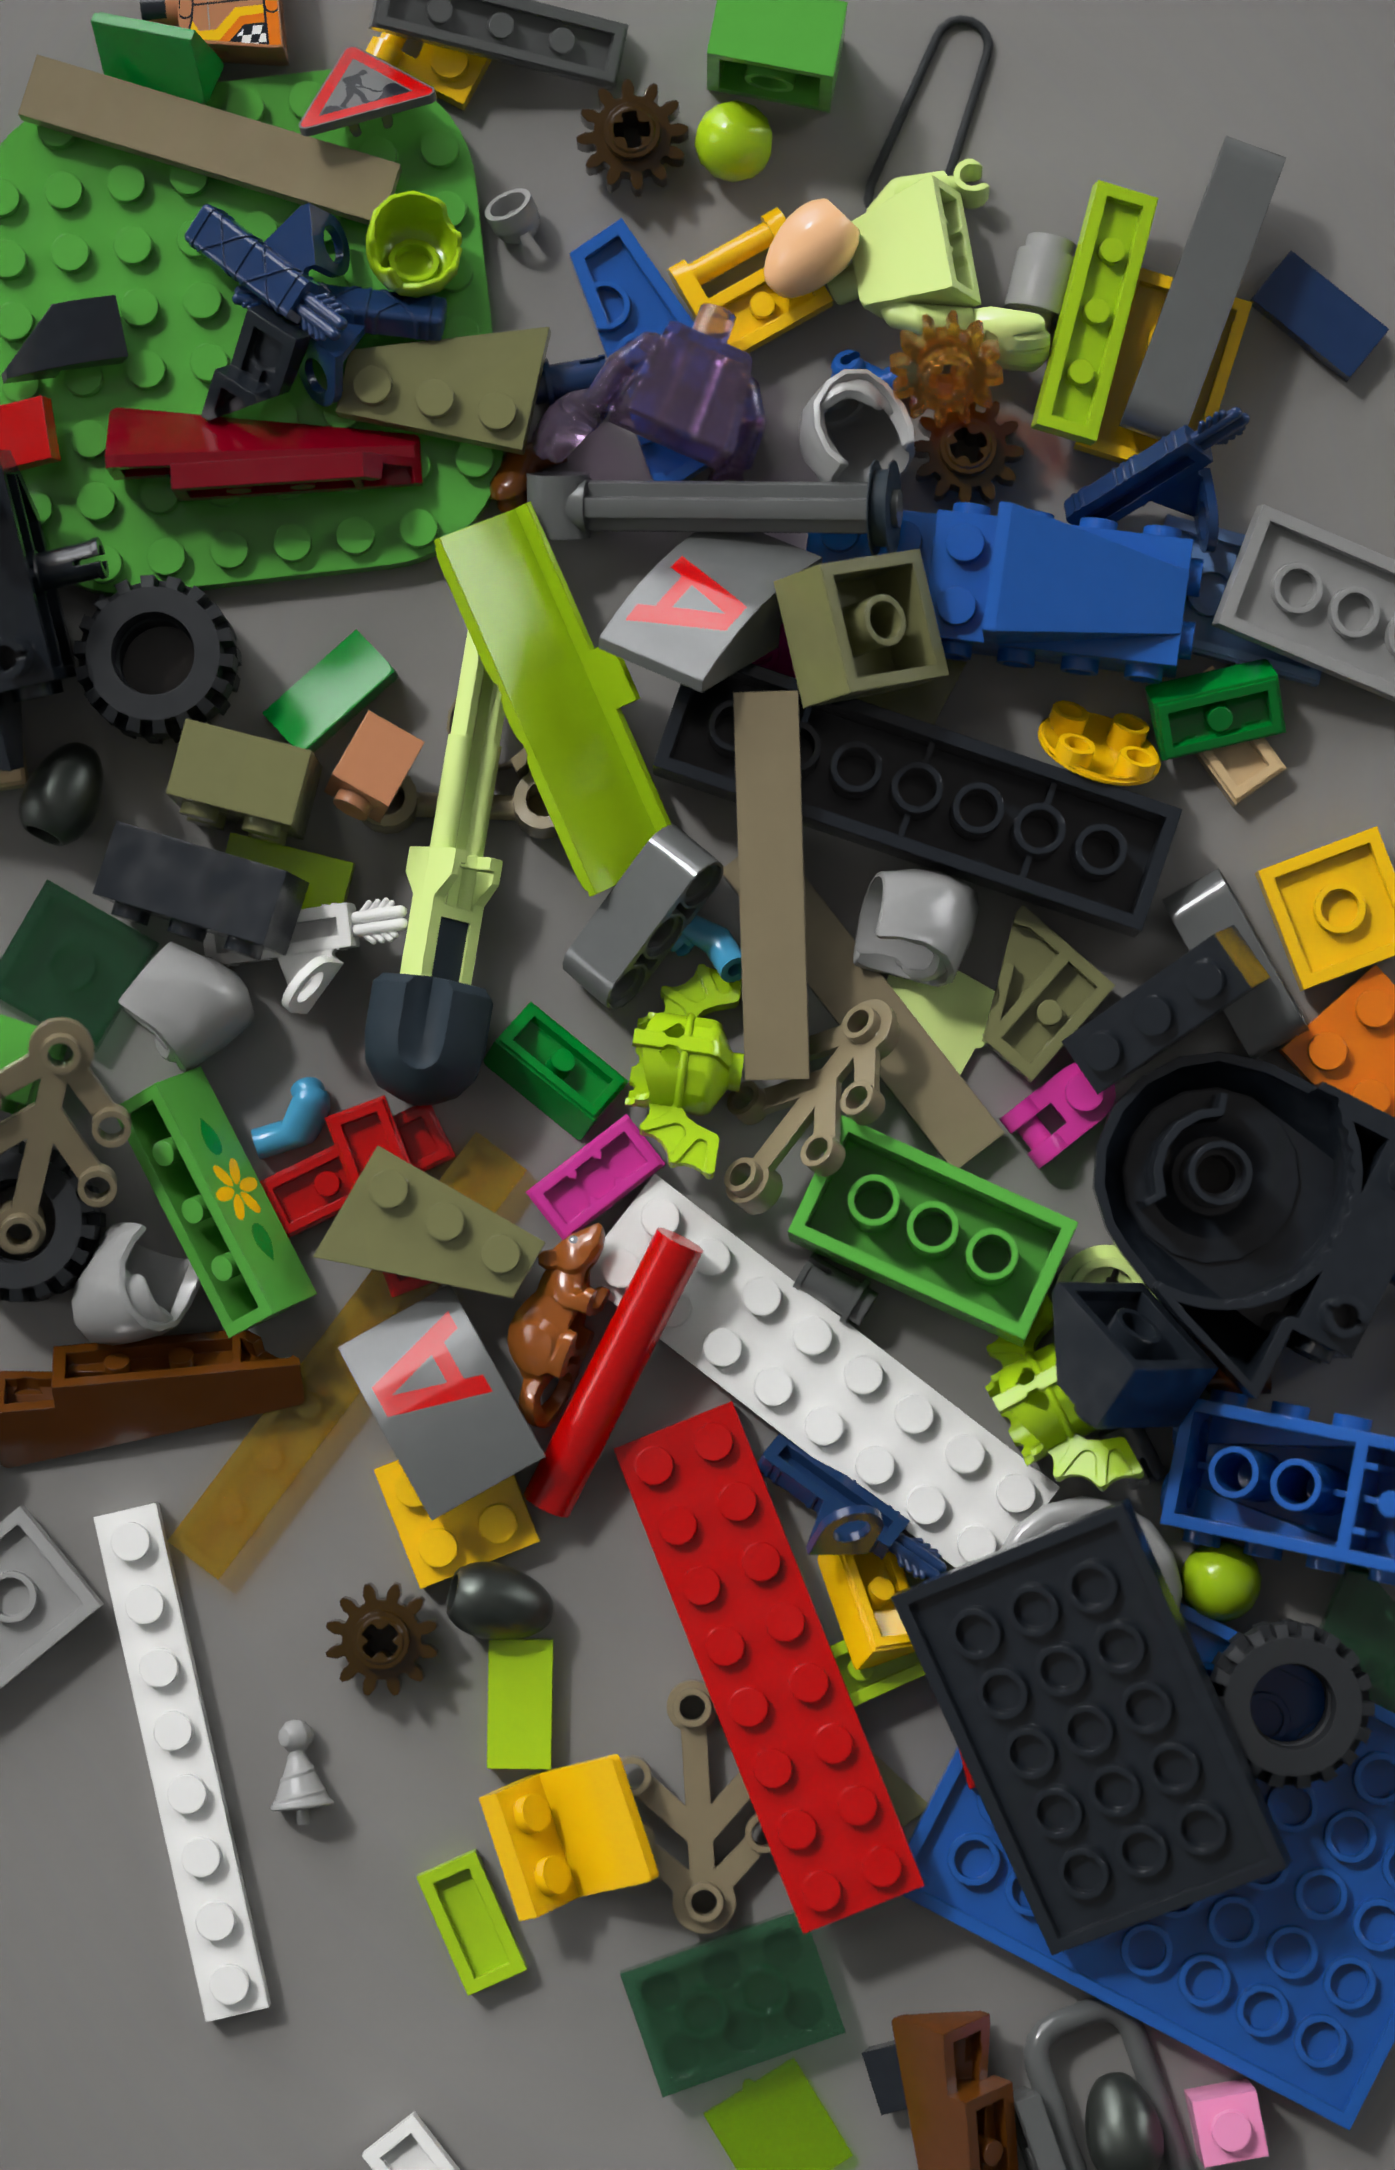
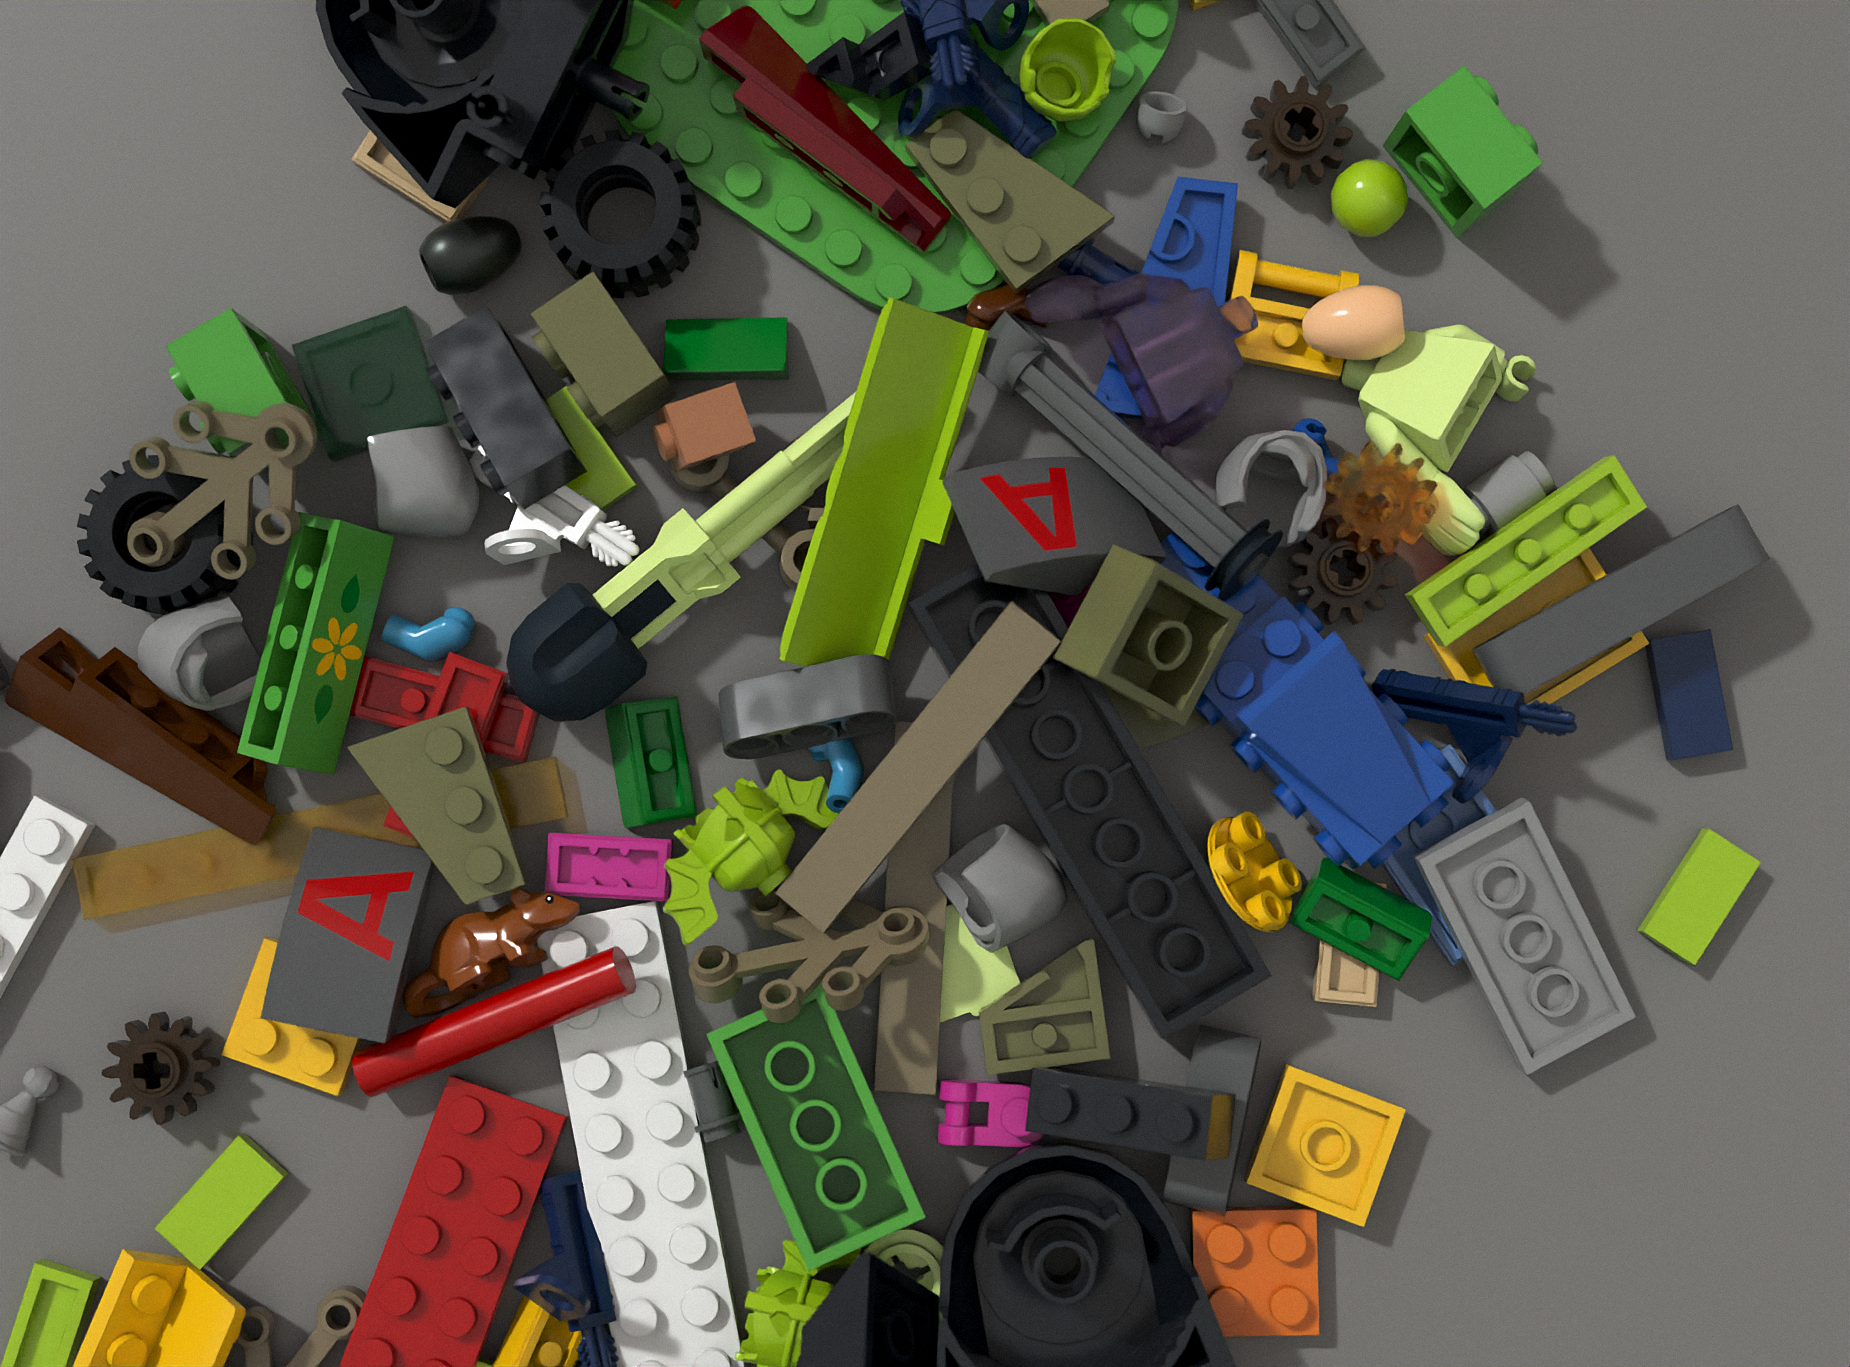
camera: 40 degrees right, 0 degrees up
(497, 1602) = (266, 1115): pearl dark grey animal -> none
(913, 89) = (1534, 273): black piece -> none

